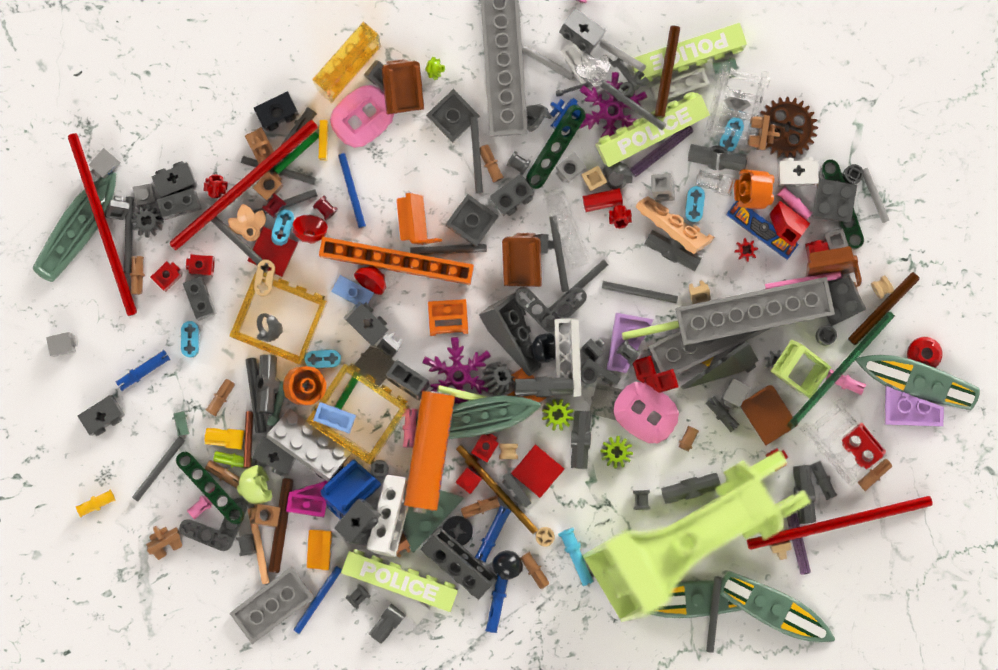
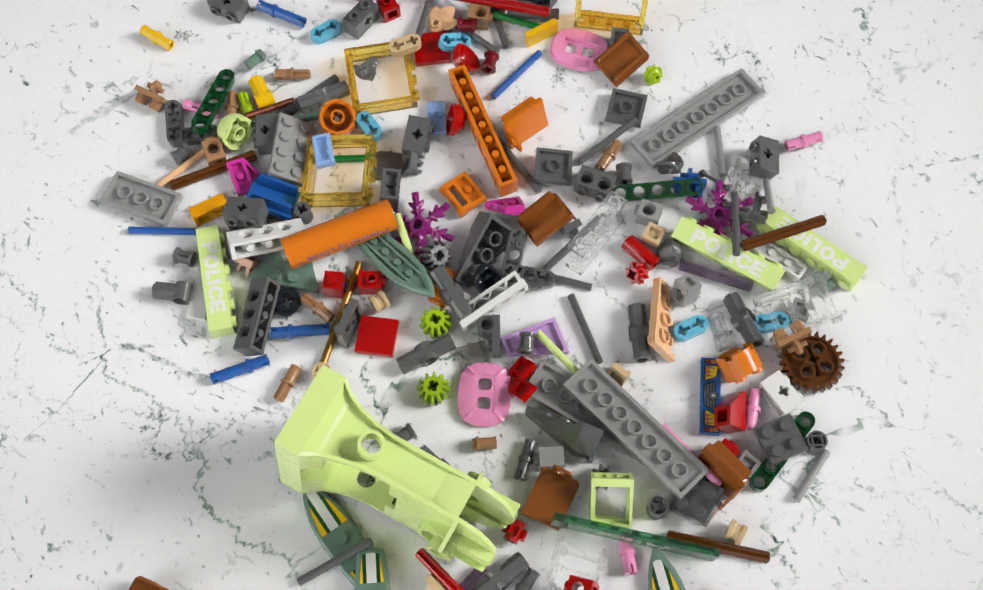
camera: 60 degrees right, 20 degrees down
(157, 470) = (208, 64): dark grey piece -> none
(487, 286) = (510, 205): none -> dark pink wing
(507, 564) = (278, 356): black hair -> none
(593, 349) = (511, 318): dark grey tile -> none
(747, 255) = (686, 387): red gear -> none

